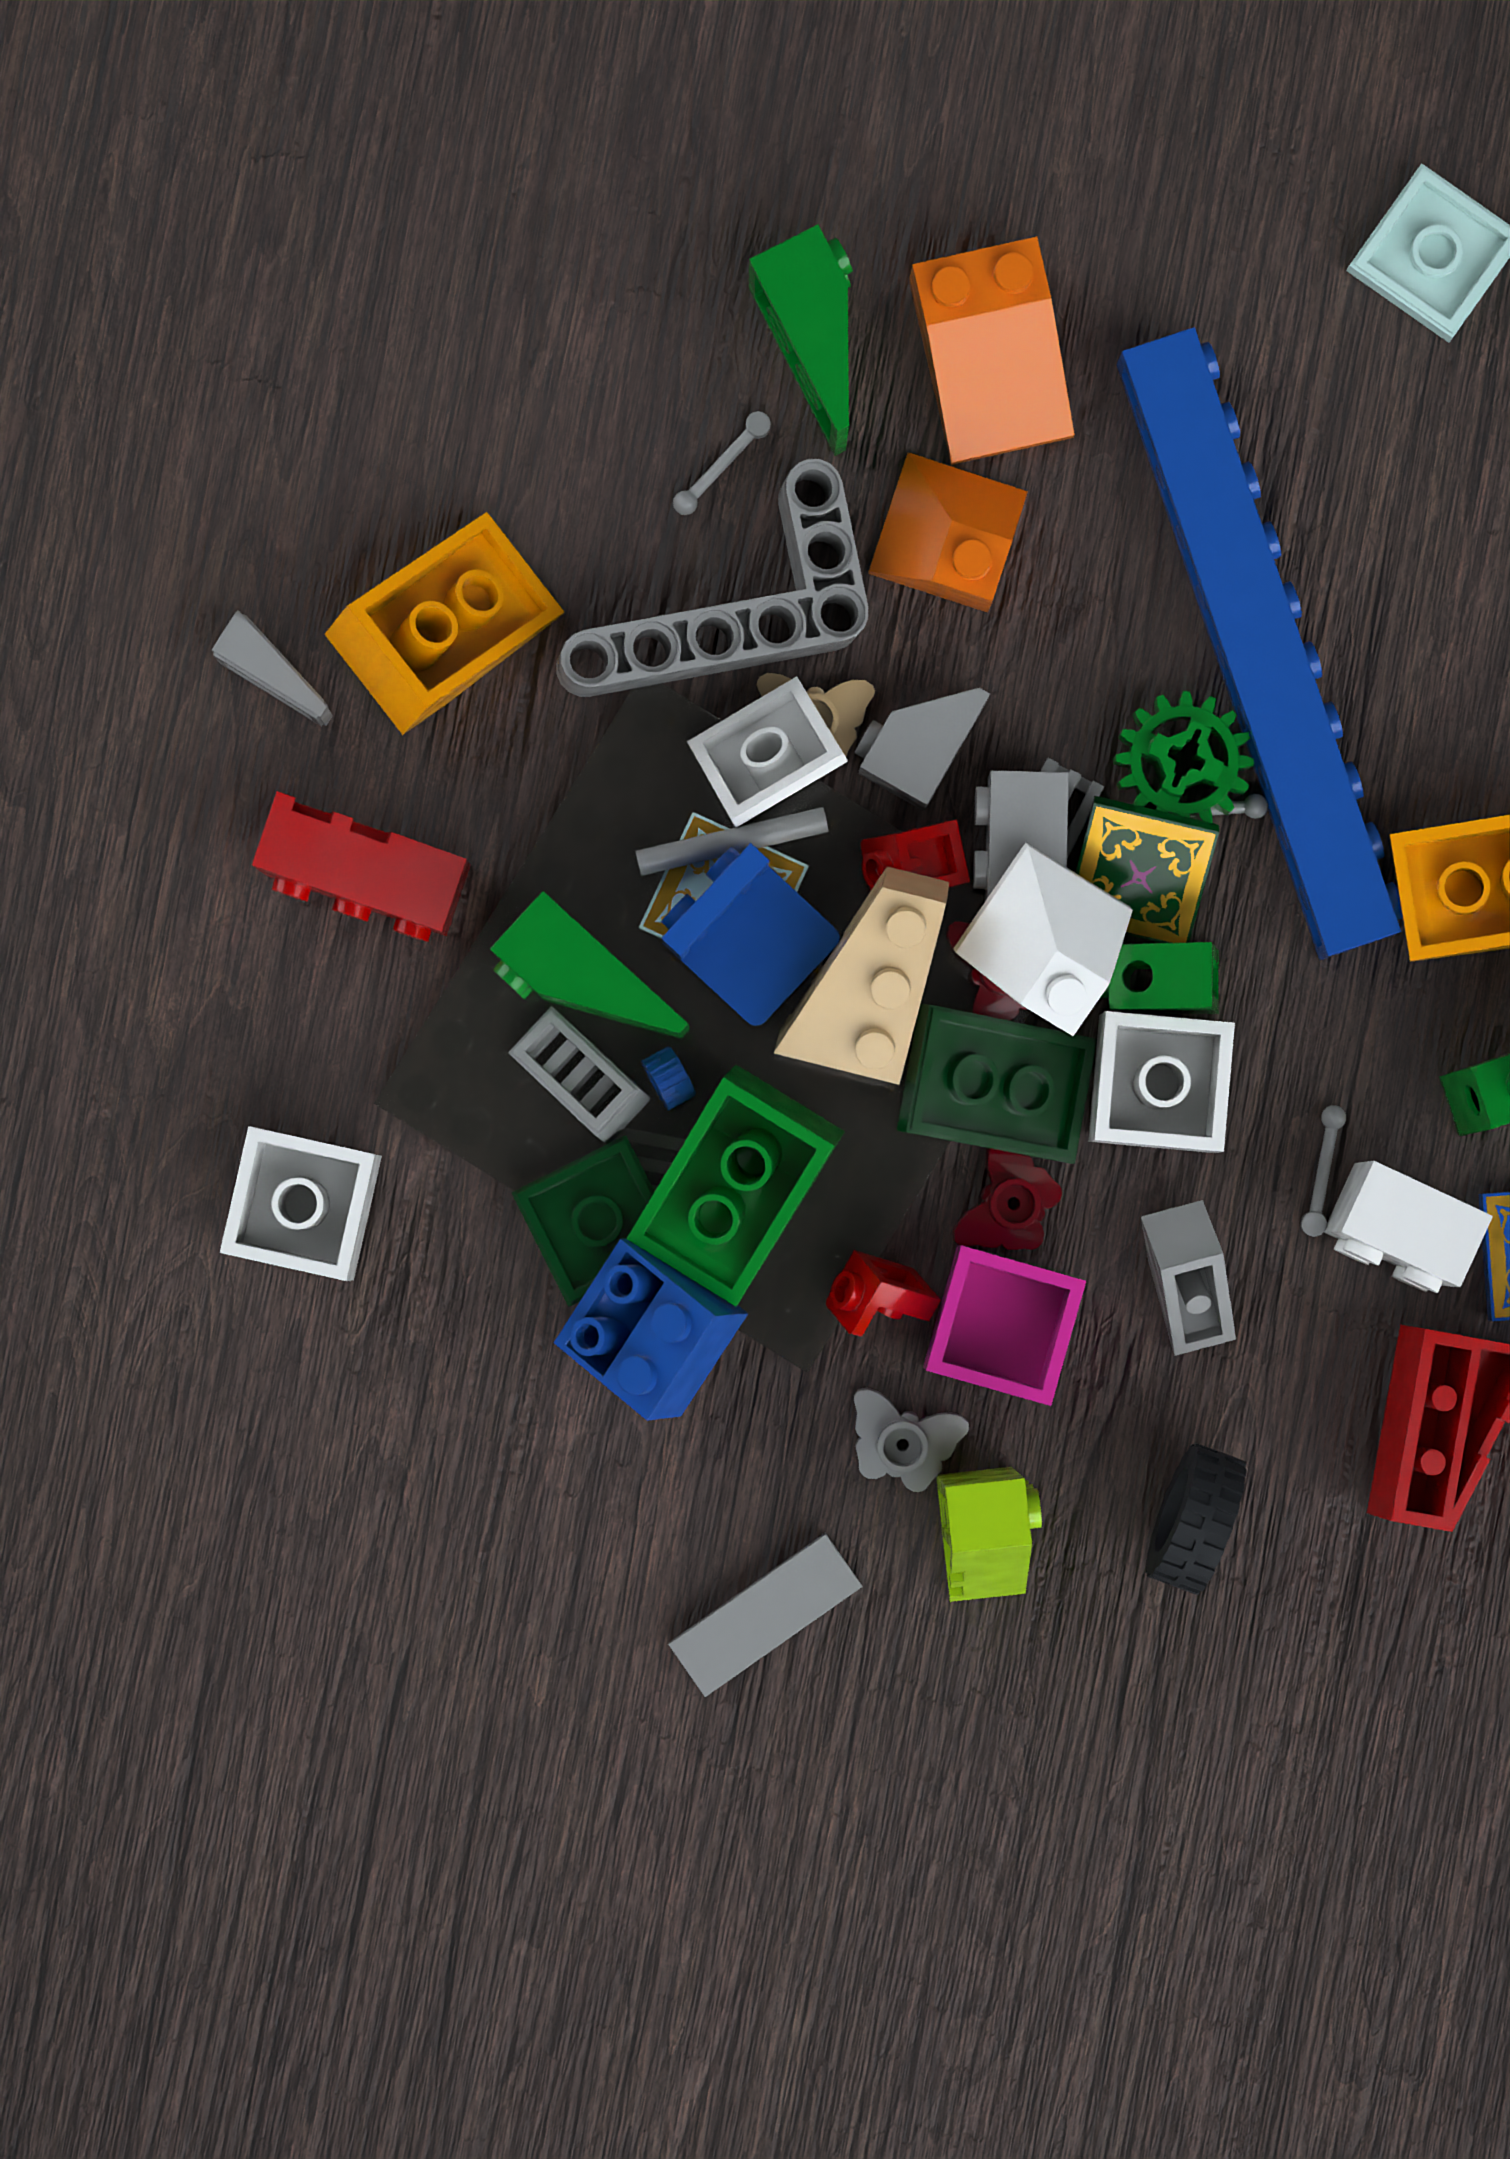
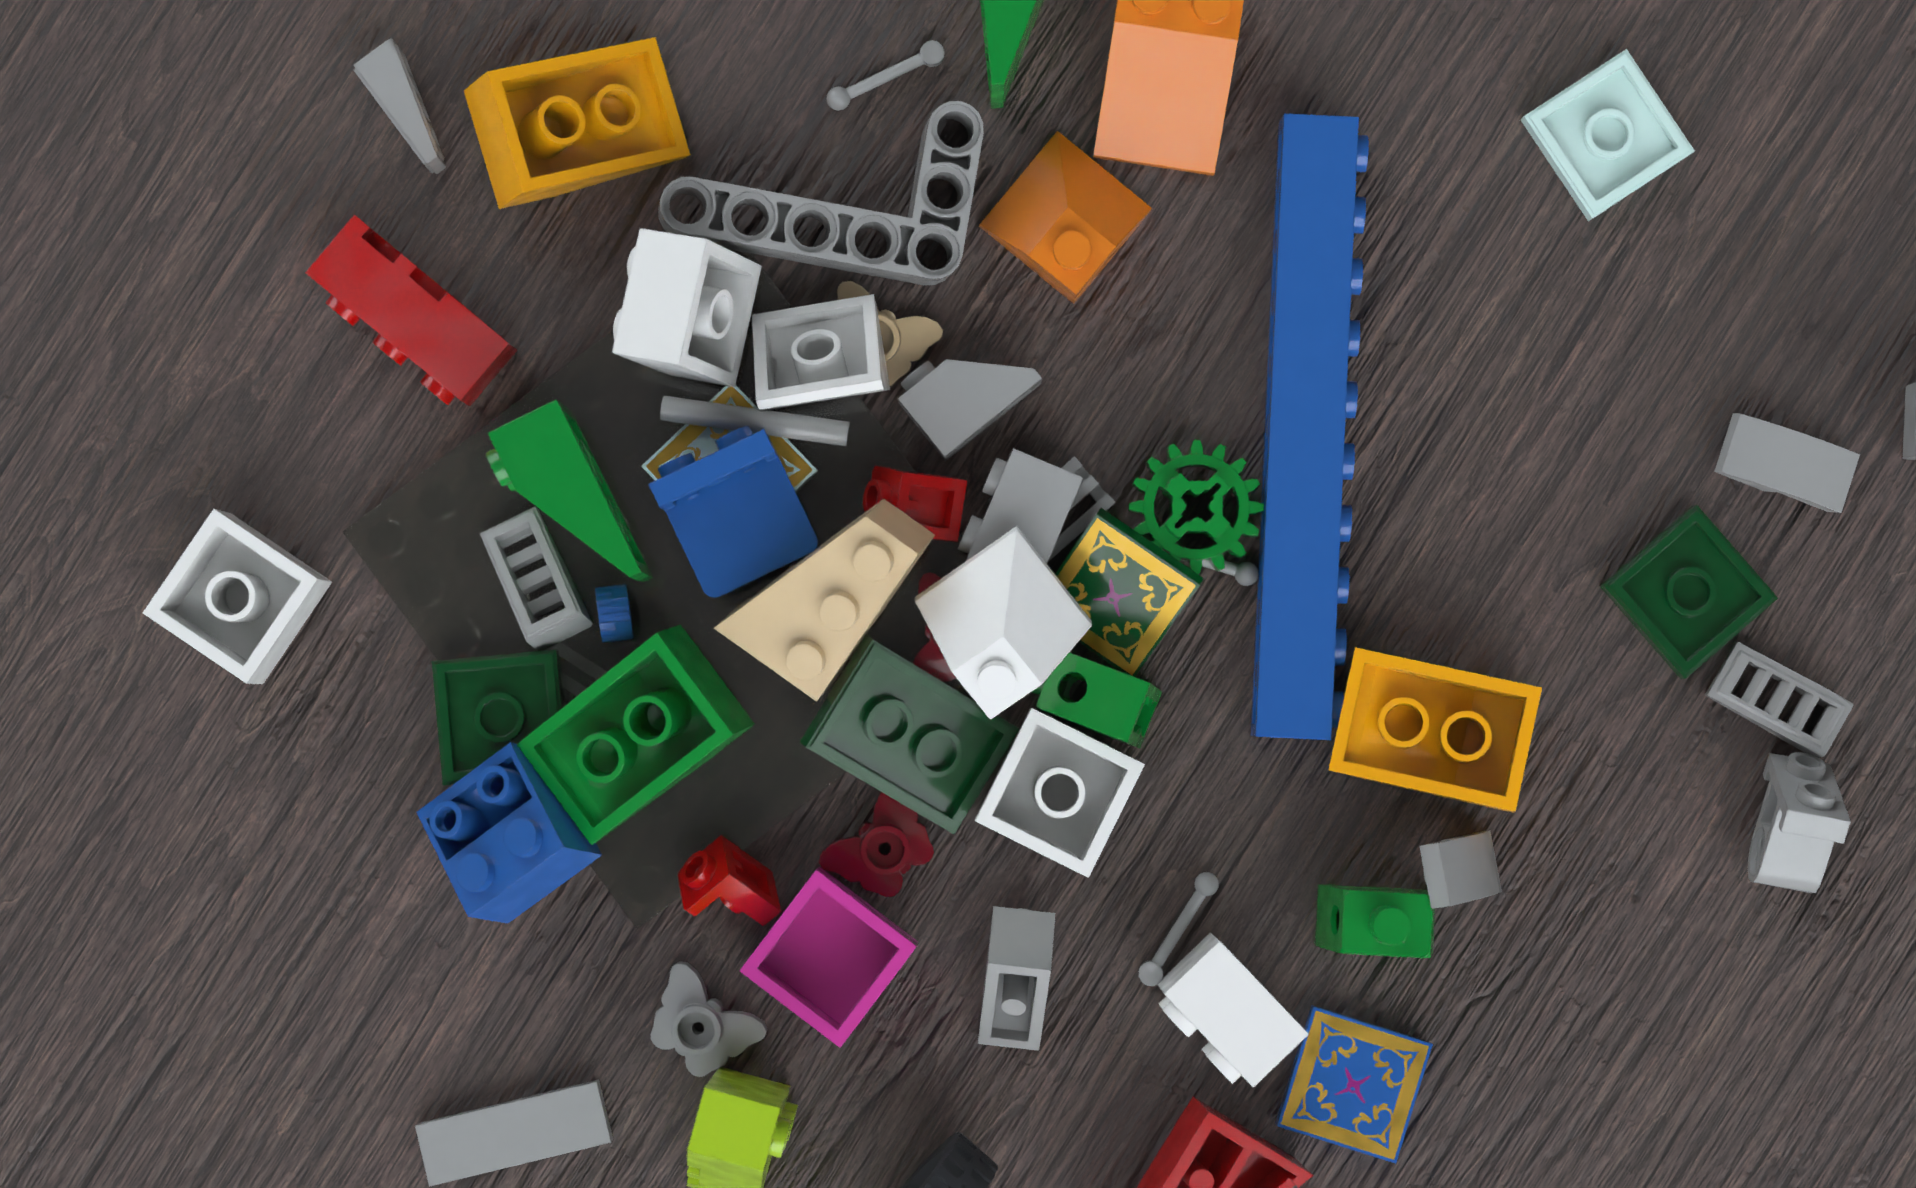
camera: 30 degrees right, 0 degrees up
(626, 757) = (686, 307): none -> white brick

